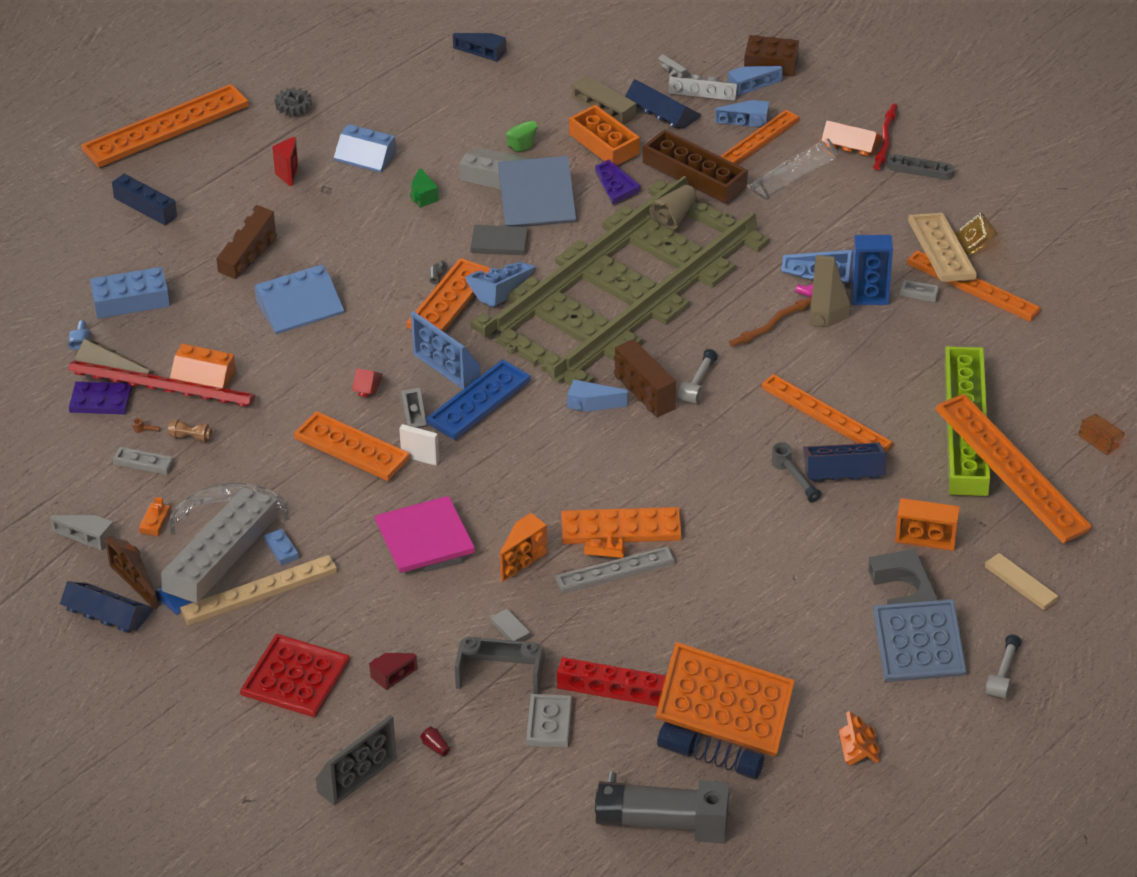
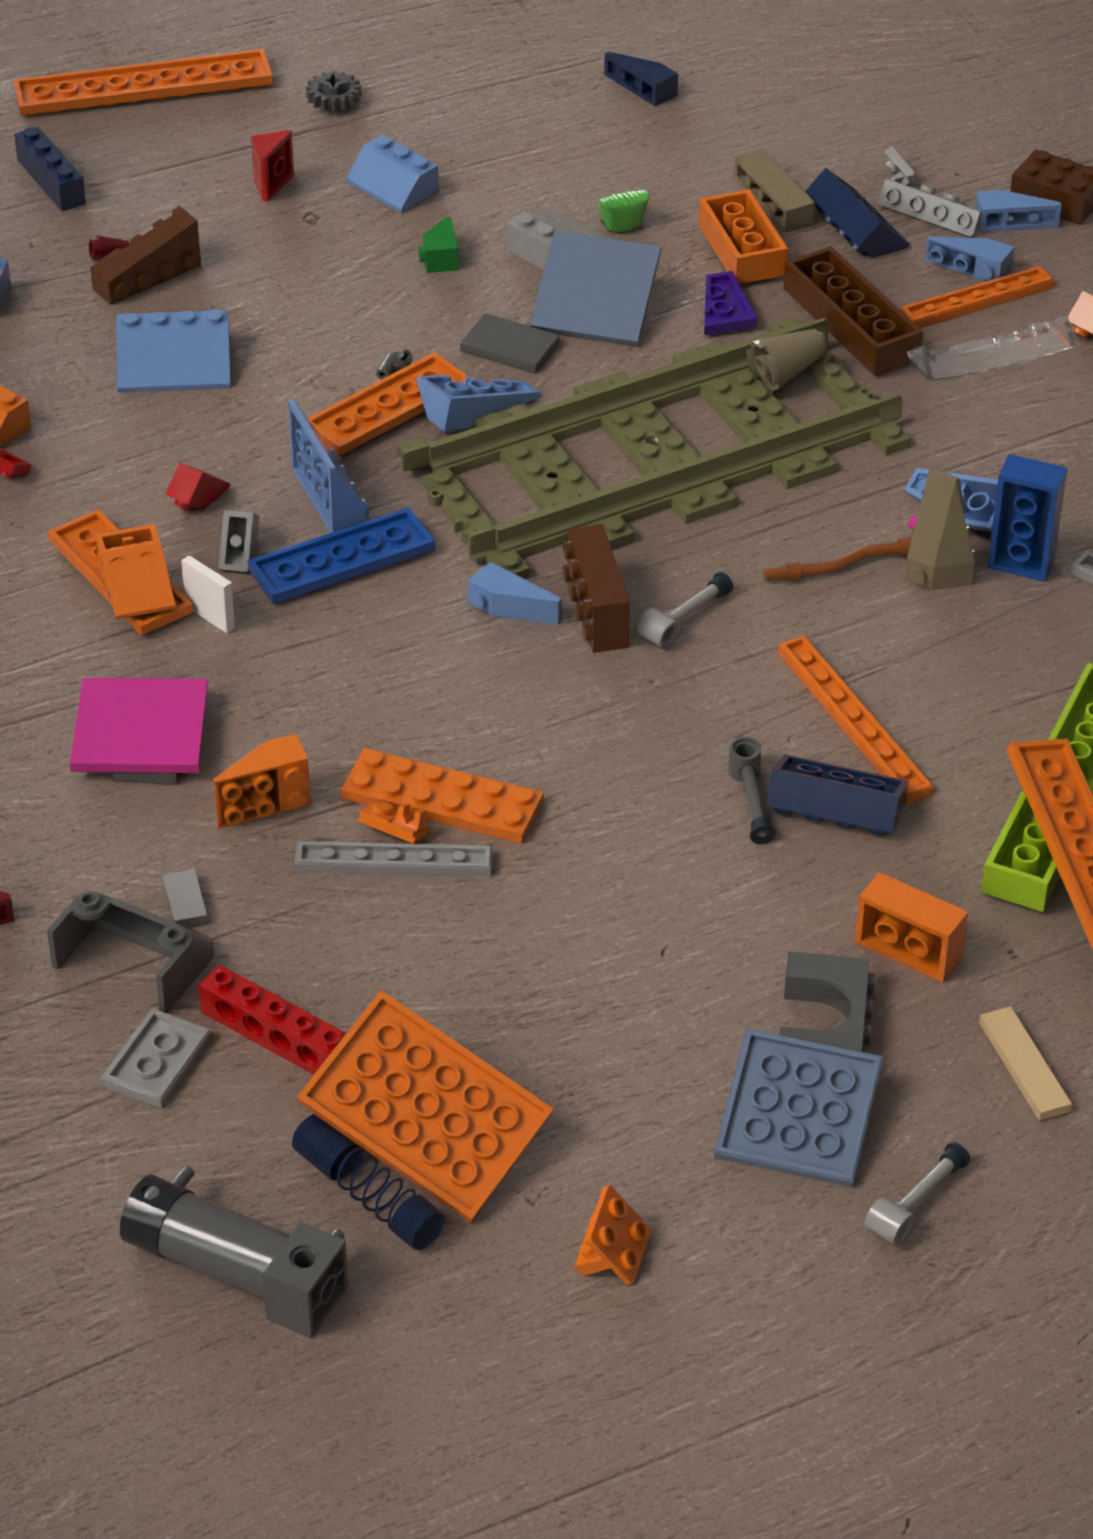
camera: 20 degrees right, 0 degrees up
(213, 243) = (102, 246): none -> dark red cone
(369, 443) = (134, 571): none -> orange slope

